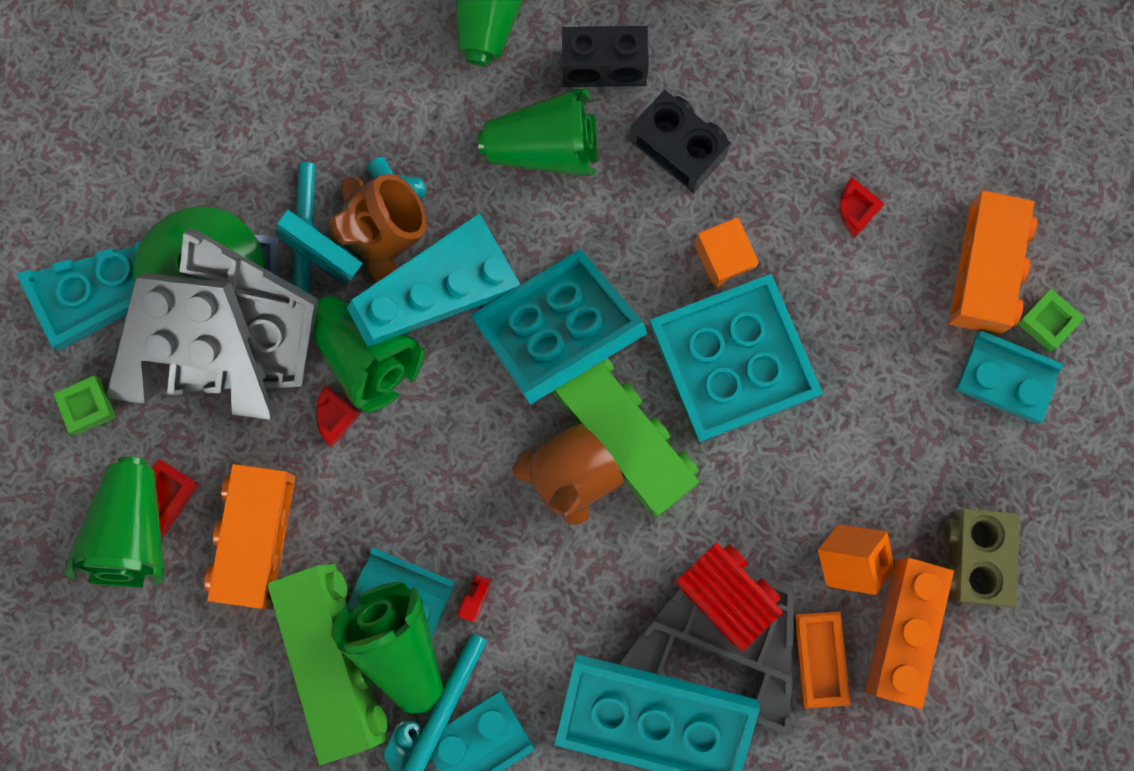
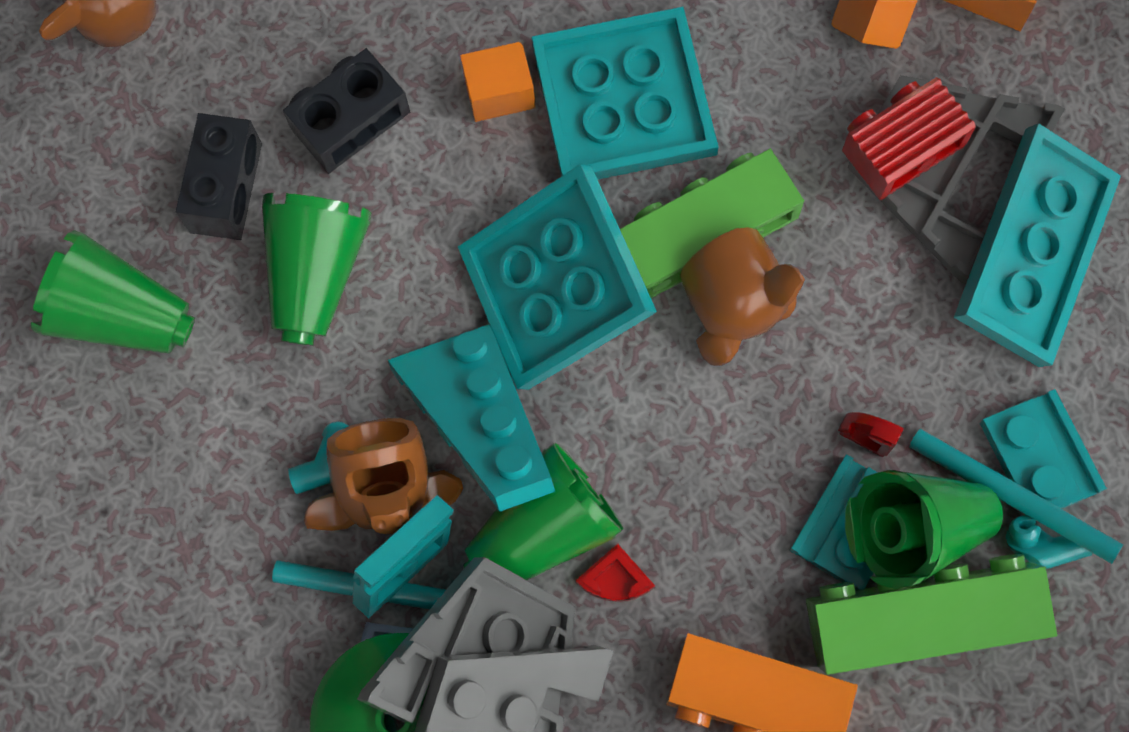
camera: 80 degrees left, 5 degrees down
(821, 660) = (983, 65): orange tile -> none

